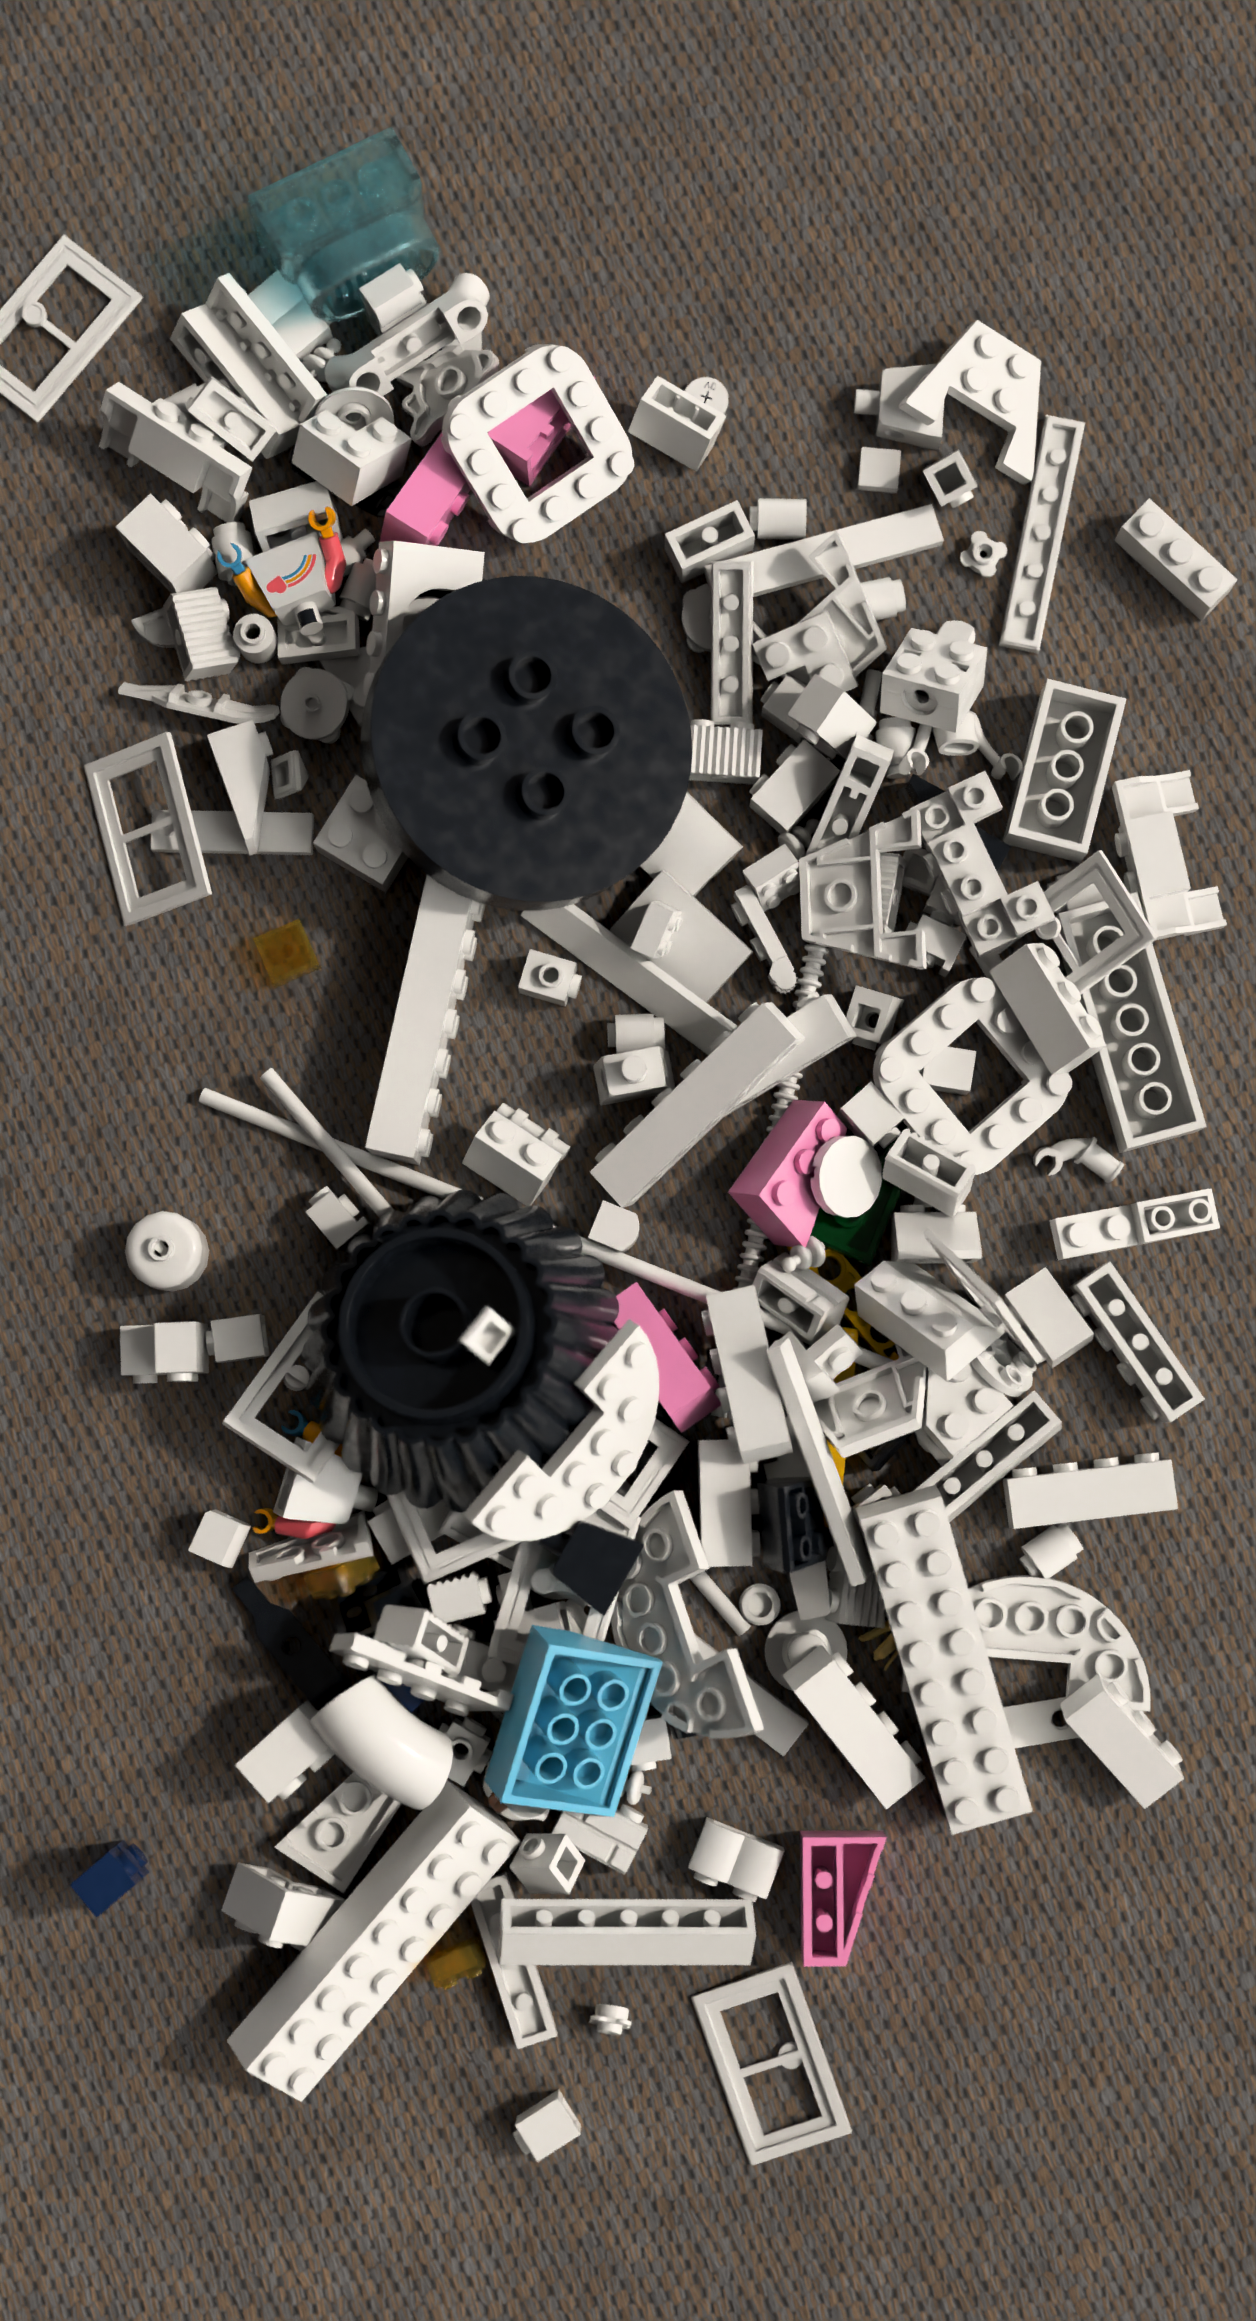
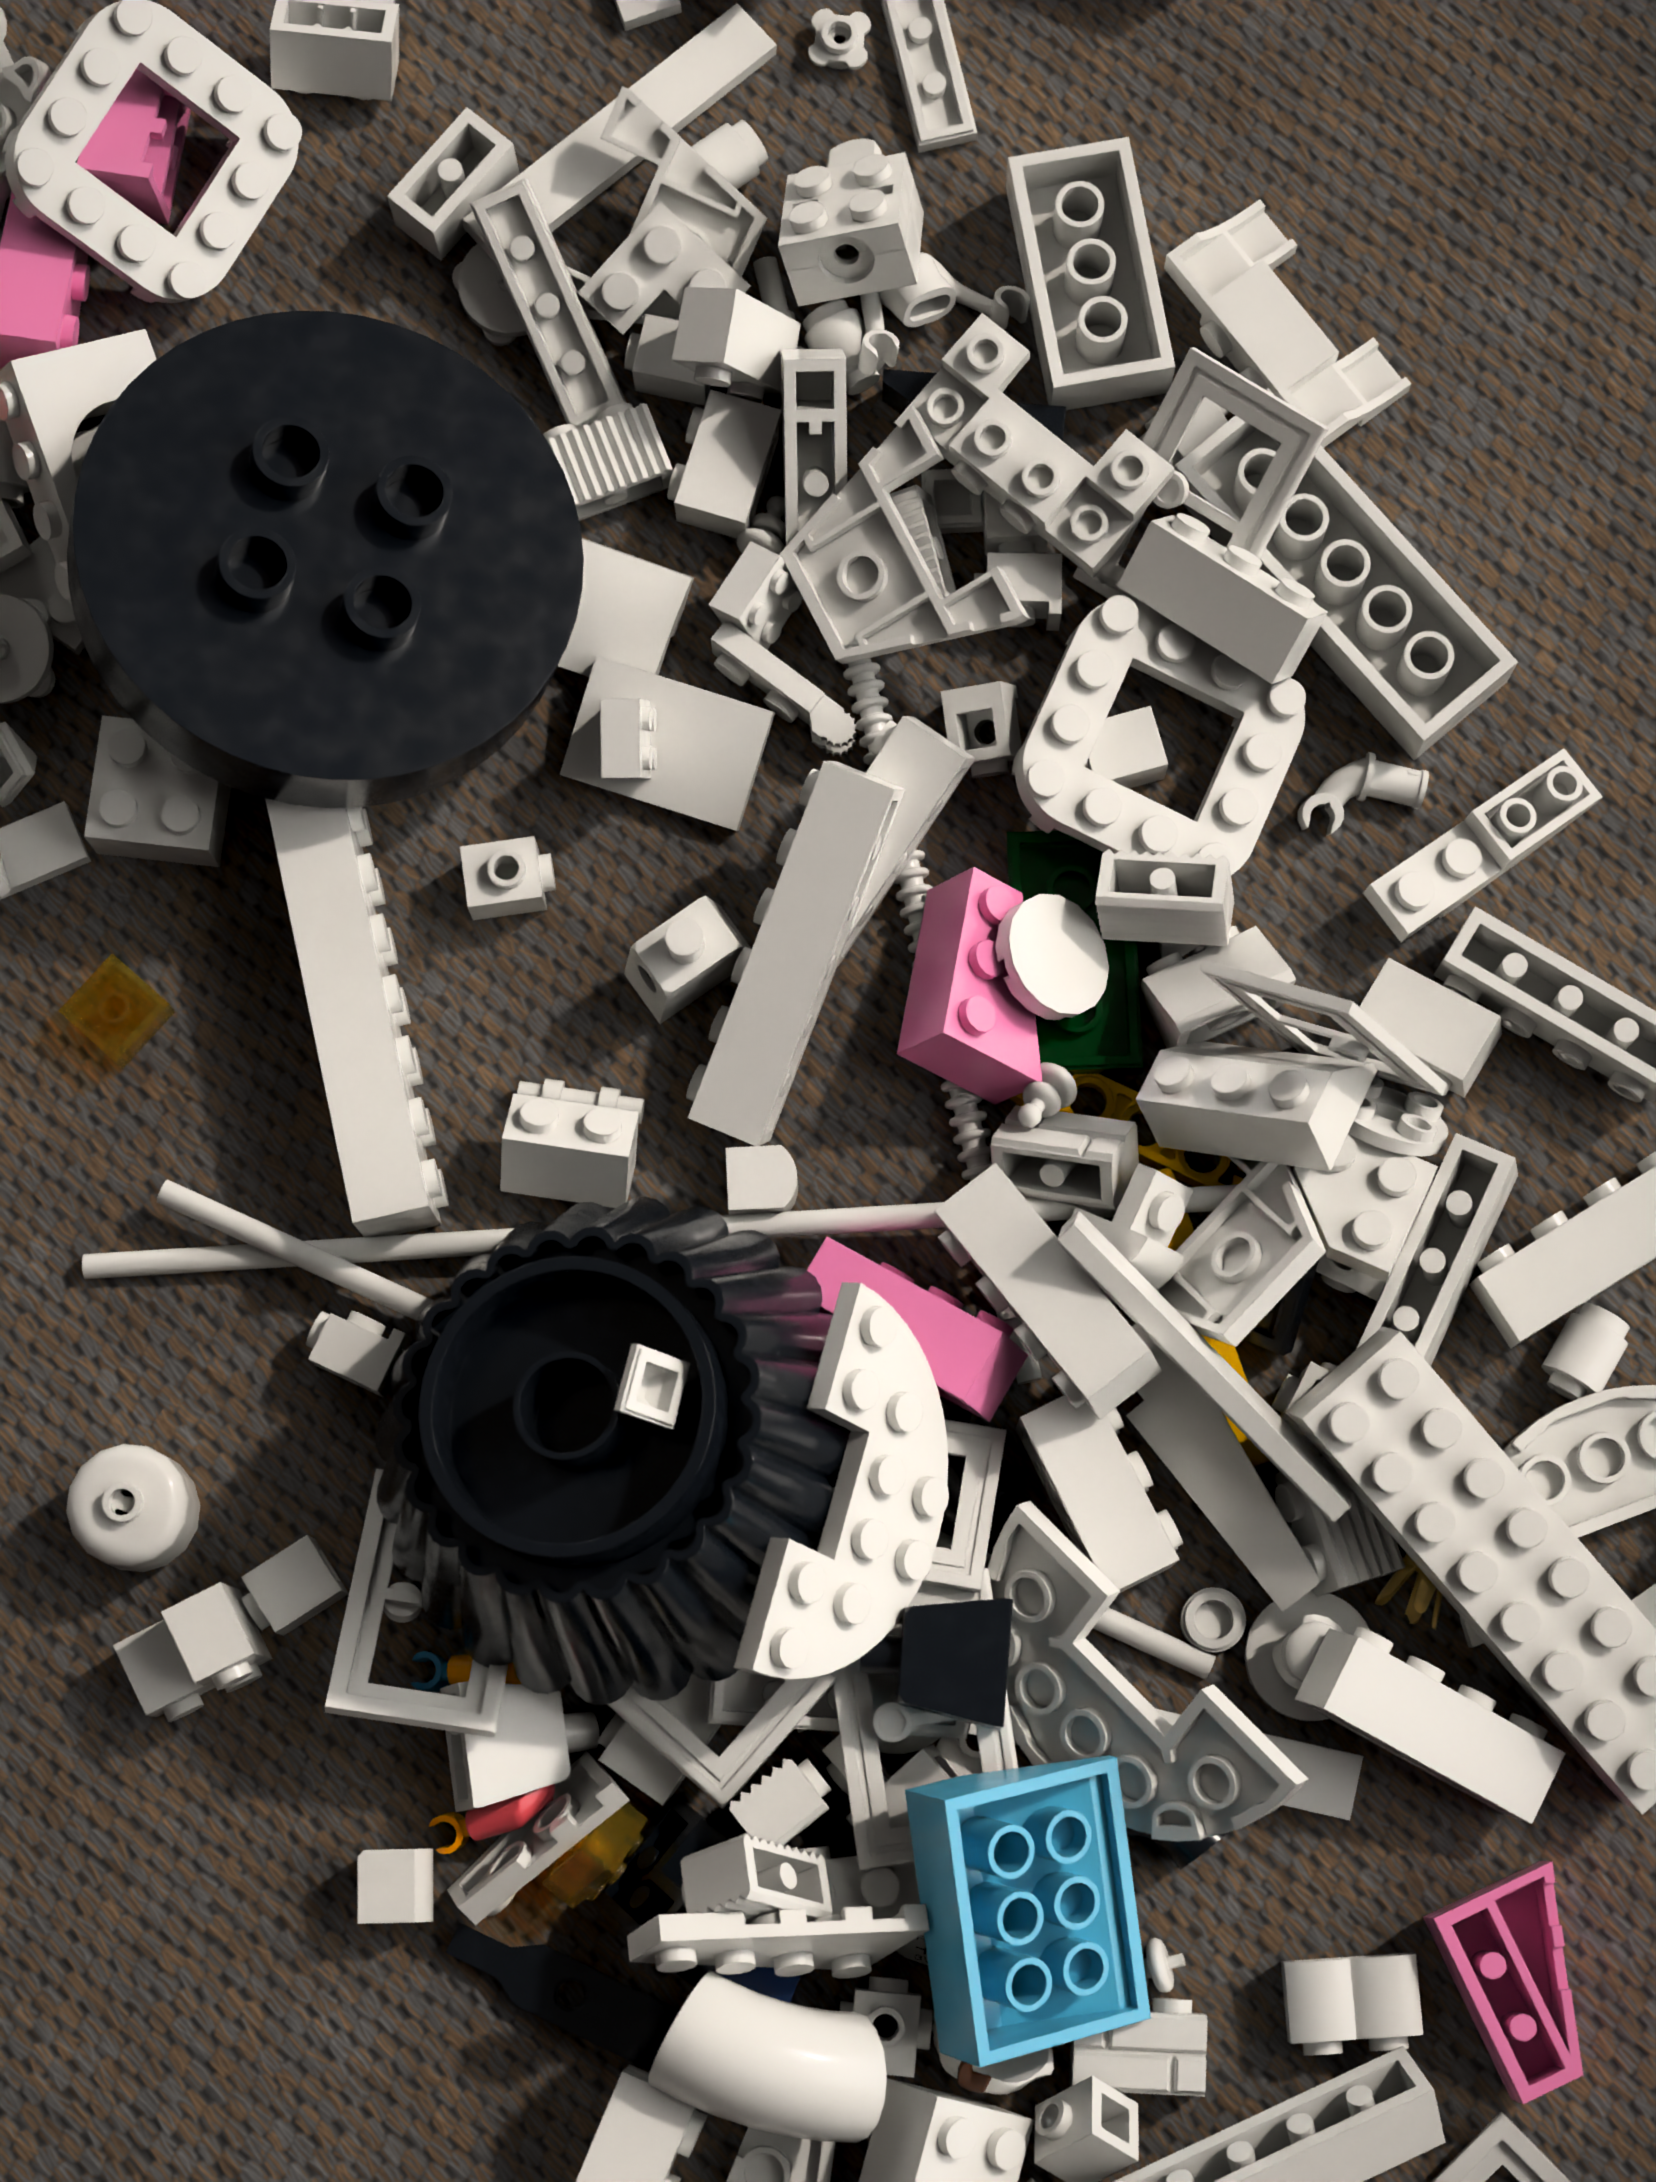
camera: 25 degrees left, 5 degrees down
(632, 974) = (615, 818): white tile -> none
(636, 1032) = (661, 895): white brick -> none
(652, 1744) = (1156, 1890): white brick -> none
(779, 518) = (537, 112): white brick -> none
(791, 1524) = (1206, 1475): black slope -> none
(872, 1117) = (1049, 859): white brick -> none

